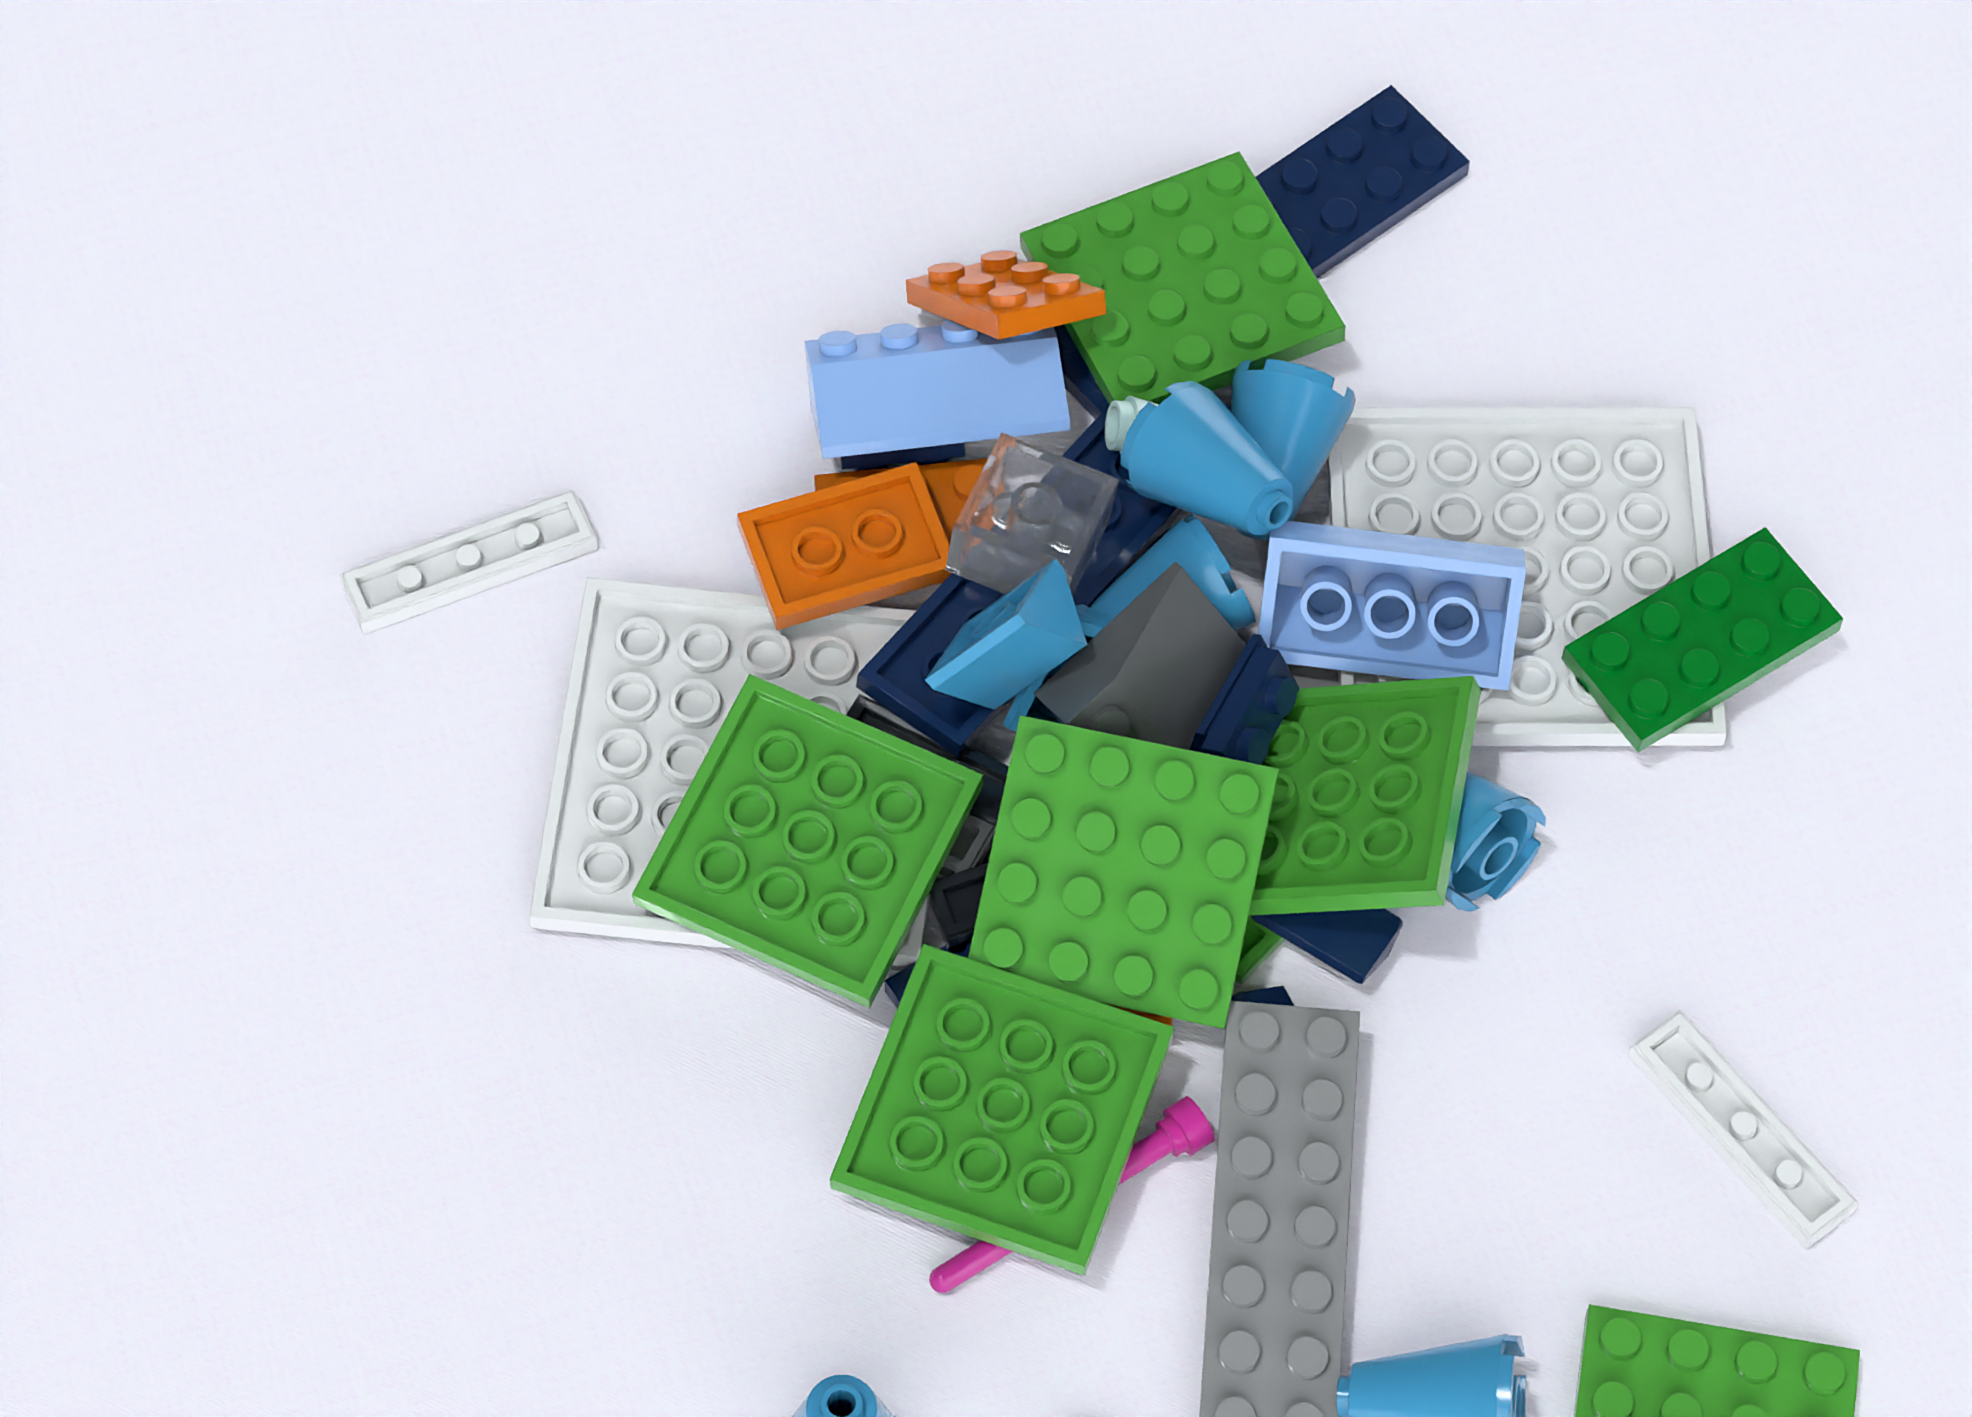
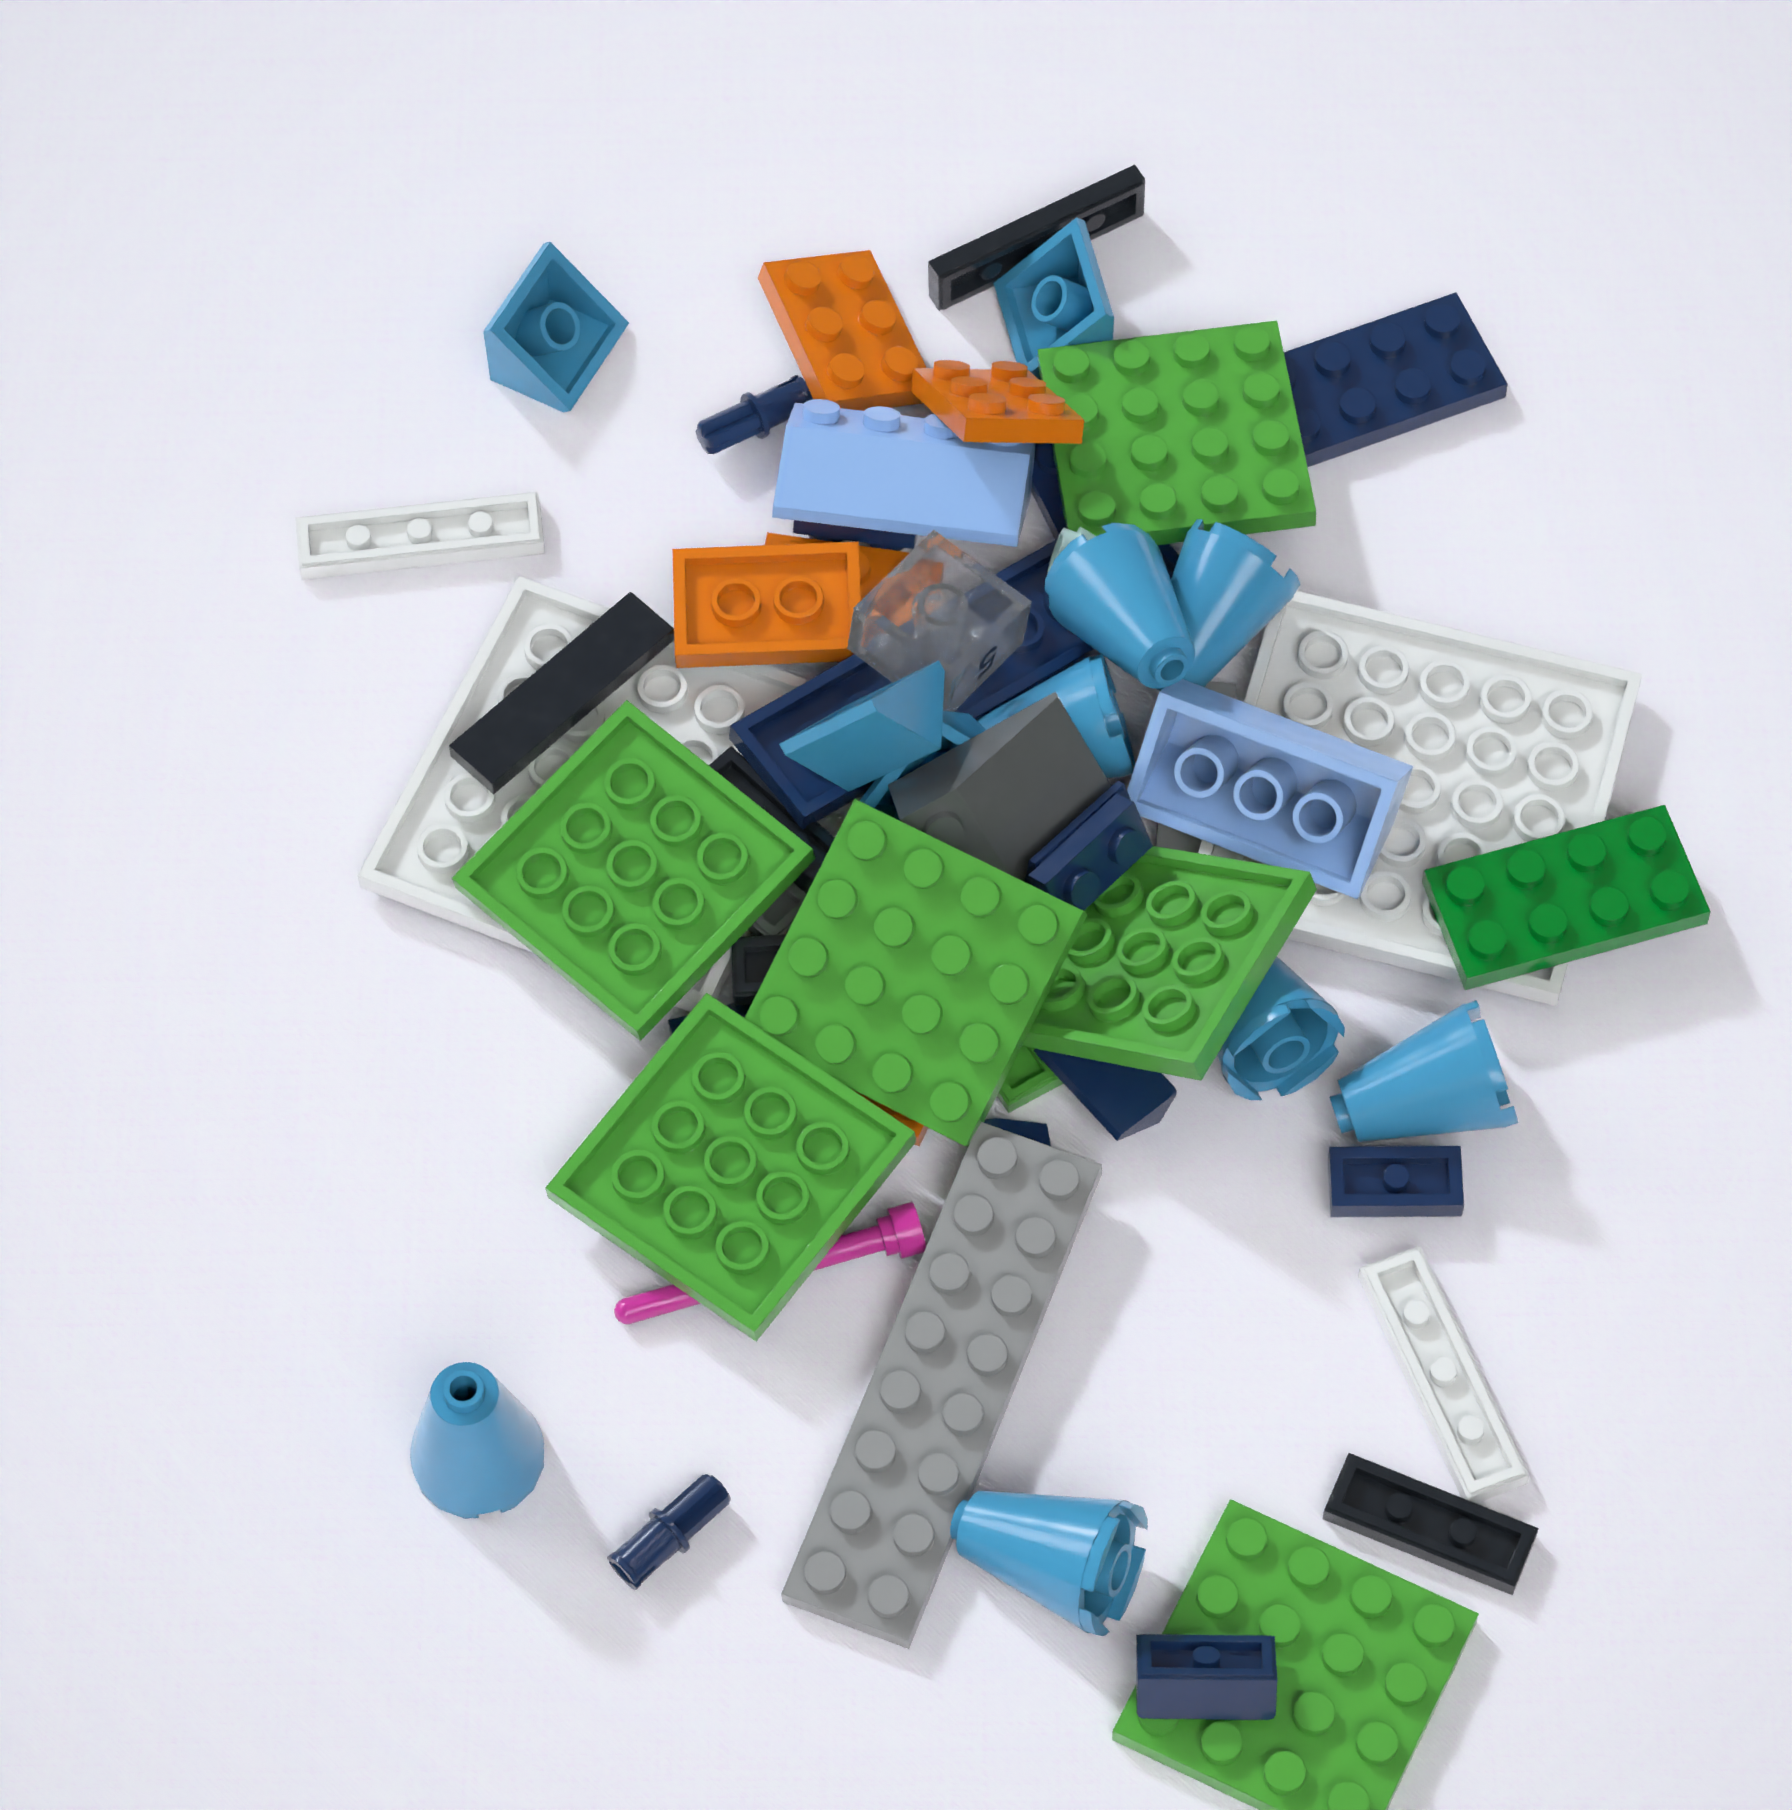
camera: 20 degrees right, 0 degrees up
(536, 330) = (551, 332): none -> dark azure slope
(672, 683) = (561, 692): none -> black tile
(761, 363) = (752, 415): none -> dark blue axle
(821, 258) = (843, 329): none -> orange plate
(975, 126) = (986, 259): none -> black tile
(1018, 178) = (1055, 297): none -> dark azure slope
(1635, 953) = (1395, 1181): none -> dark blue plate
(1640, 850) = (1428, 1084): none -> dark azure cone
(1781, 1275) = (1430, 1523): none -> black tile

